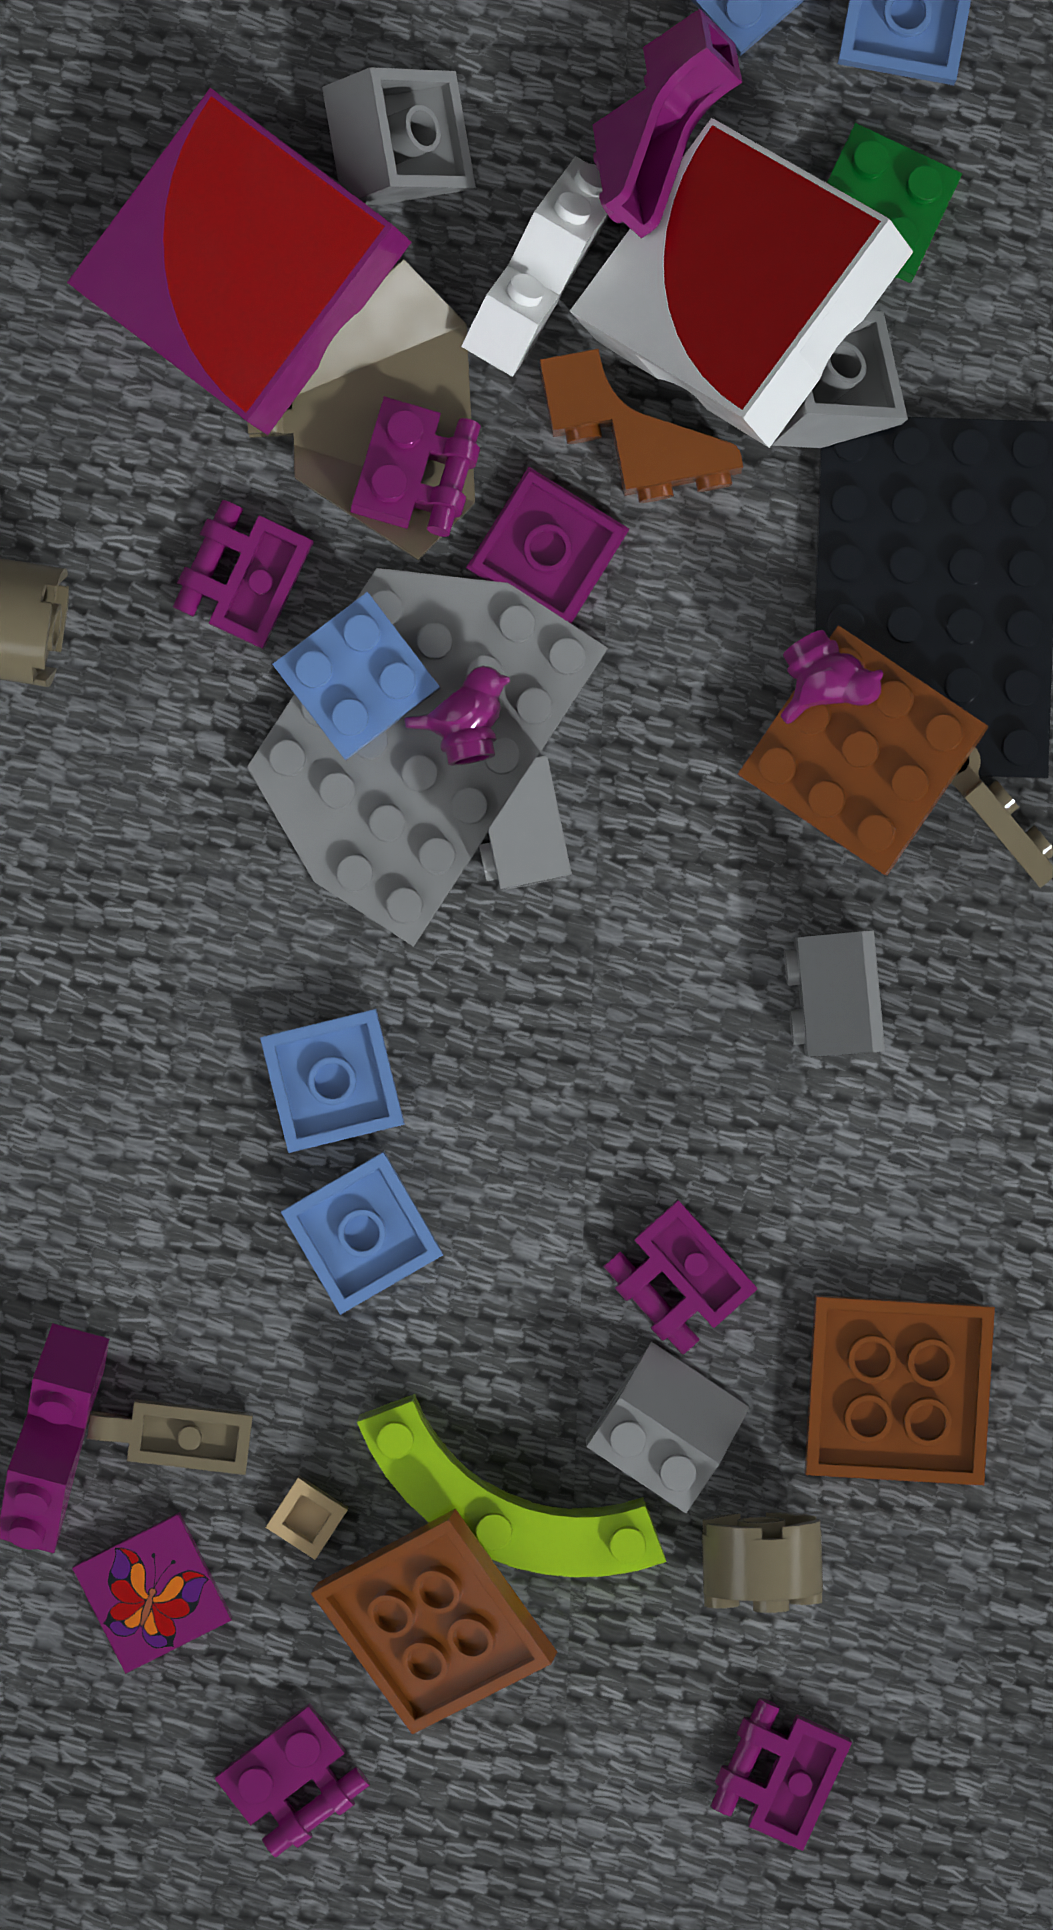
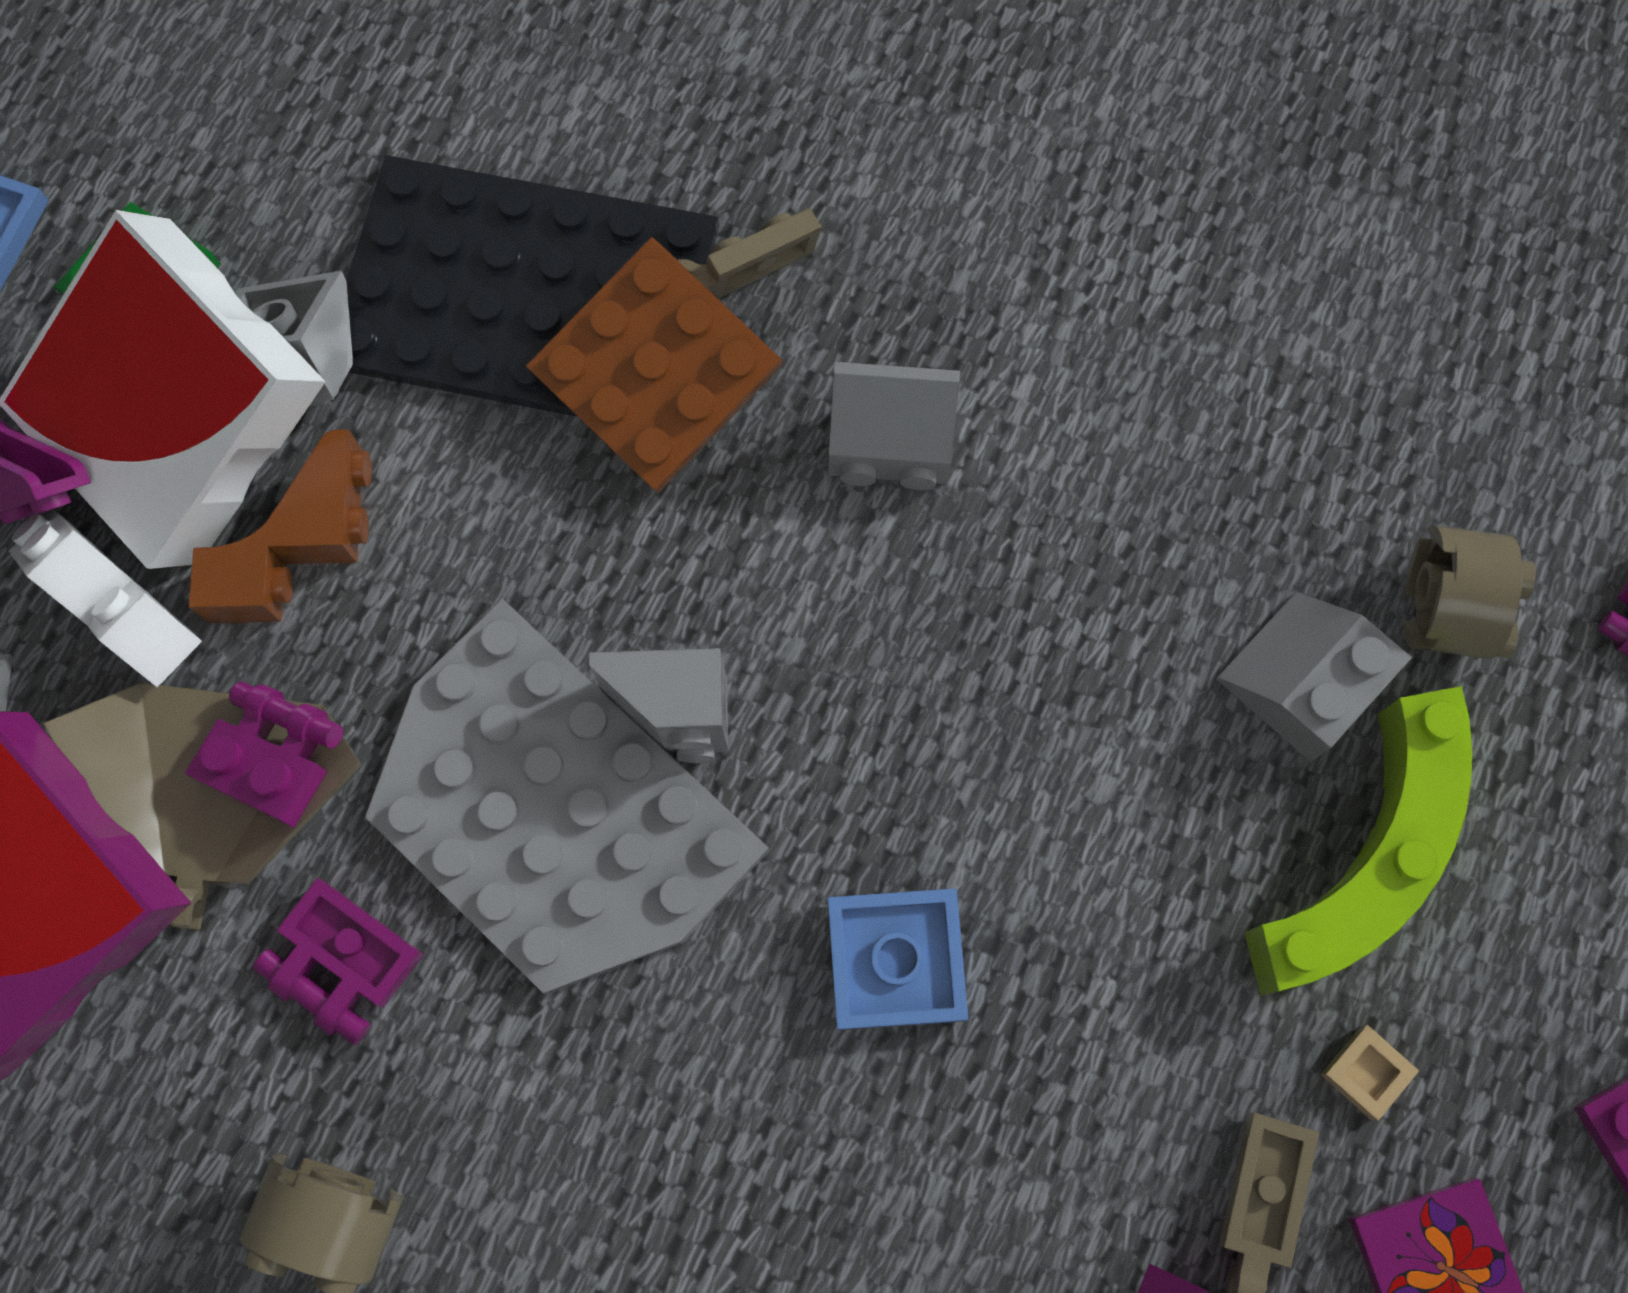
camera: 80 degrees left, 15 degrees down
(356, 676) = (469, 854): medium blue plate -> none
(362, 1232) = (1066, 955): medium blue plate -> none
(434, 1622) = (1506, 945): dark orange plate -> none
(467, 717) = (537, 742): magenta animal -> none
(548, 545) = (385, 641): magenta tile -> none
(693, 1264) = (1144, 618): magenta plate -> none
(827, 676) = (570, 370): magenta animal -> none
(899, 1390) = (1296, 444): dark orange plate -> none

